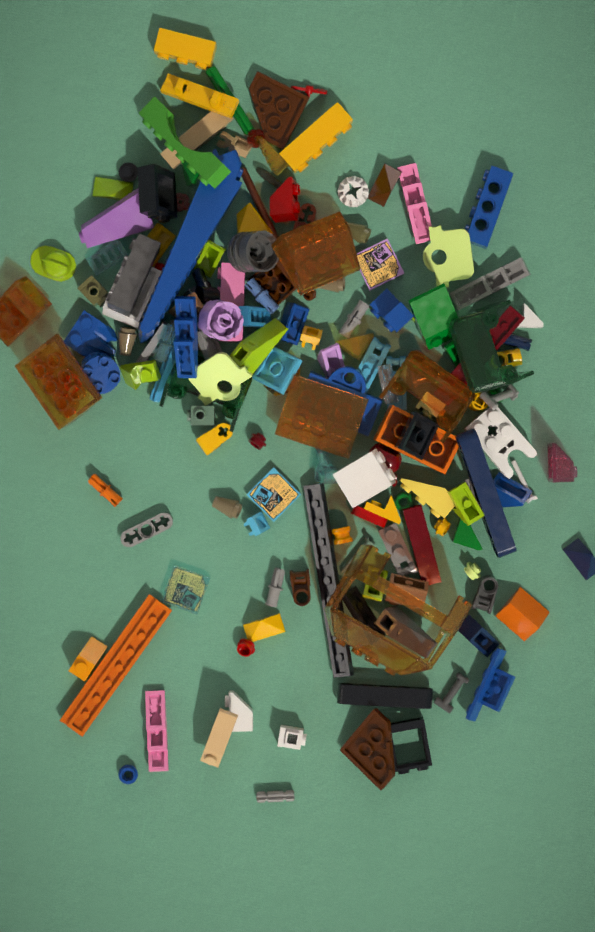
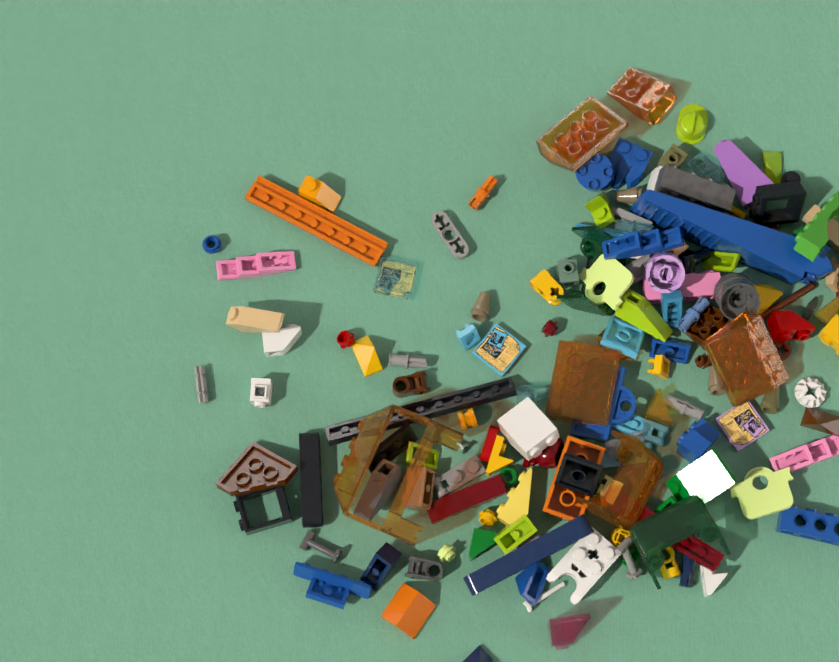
camera: 90 degrees right, 15 degrees down
(330, 359) = (641, 388): lavender slope -> none
(490, 283) = (741, 538): light grey slope -> none

